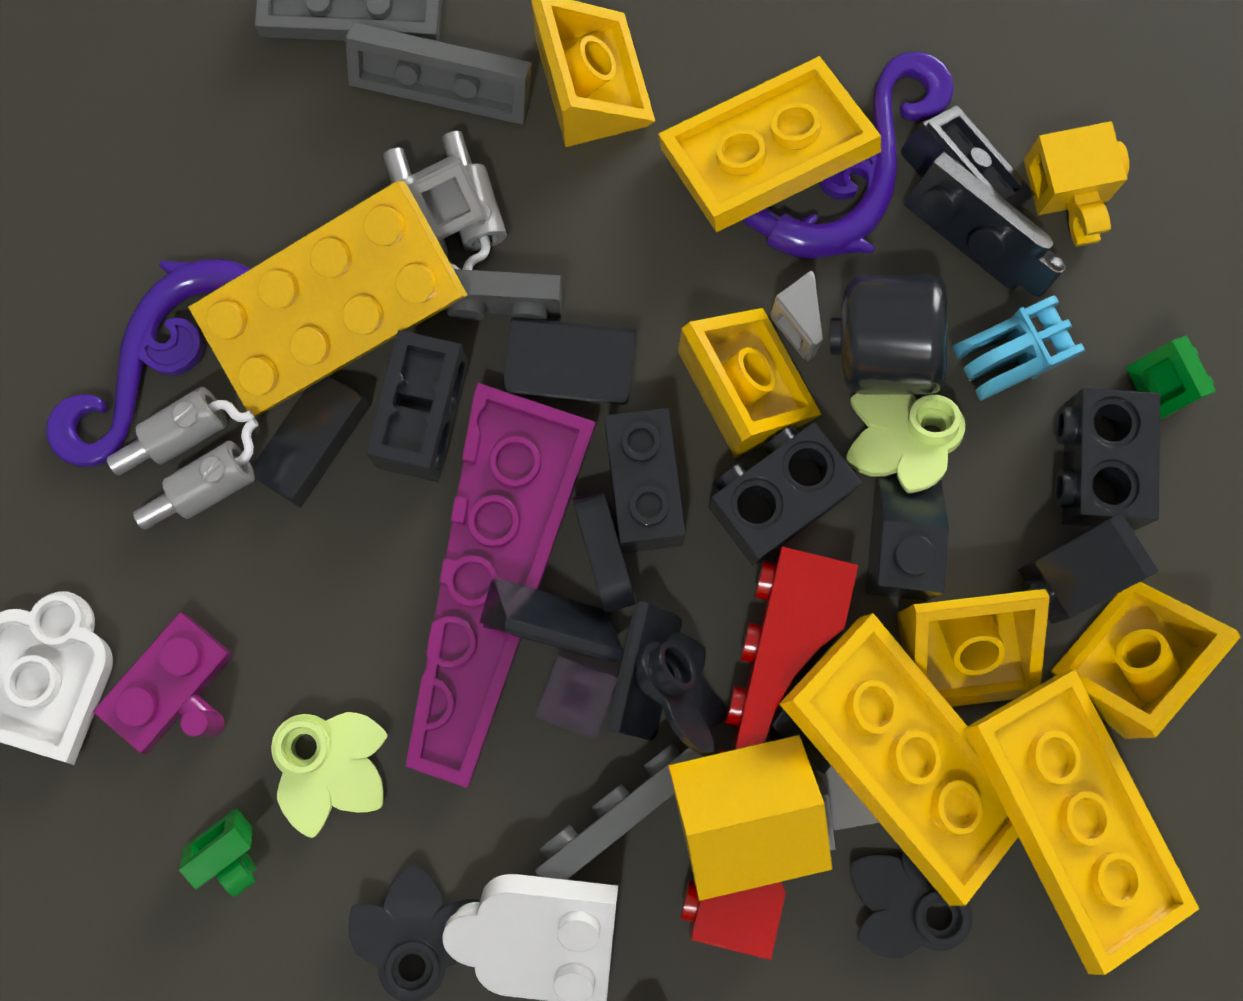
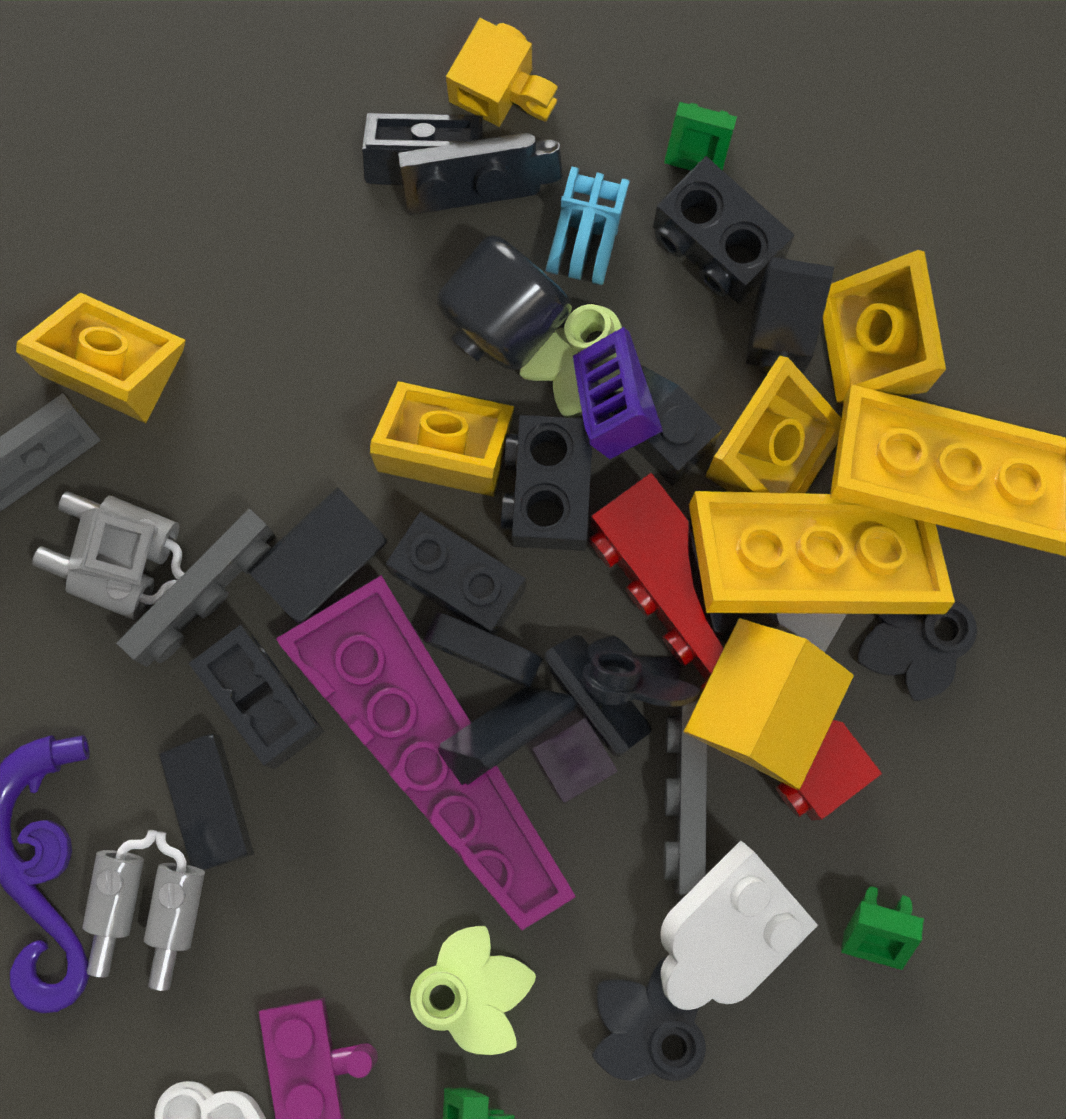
camera: 50 degrees left, 0 degrees up
(328, 299) = (115, 699): yellow plate -> none
(769, 143) = (279, 271): yellow plate -> none
(798, 316) = (429, 360): light grey slope -> none
(846, 235) = (364, 208): dark purple plant -> none
(893, 517) = (630, 426): none -> dark purple slope

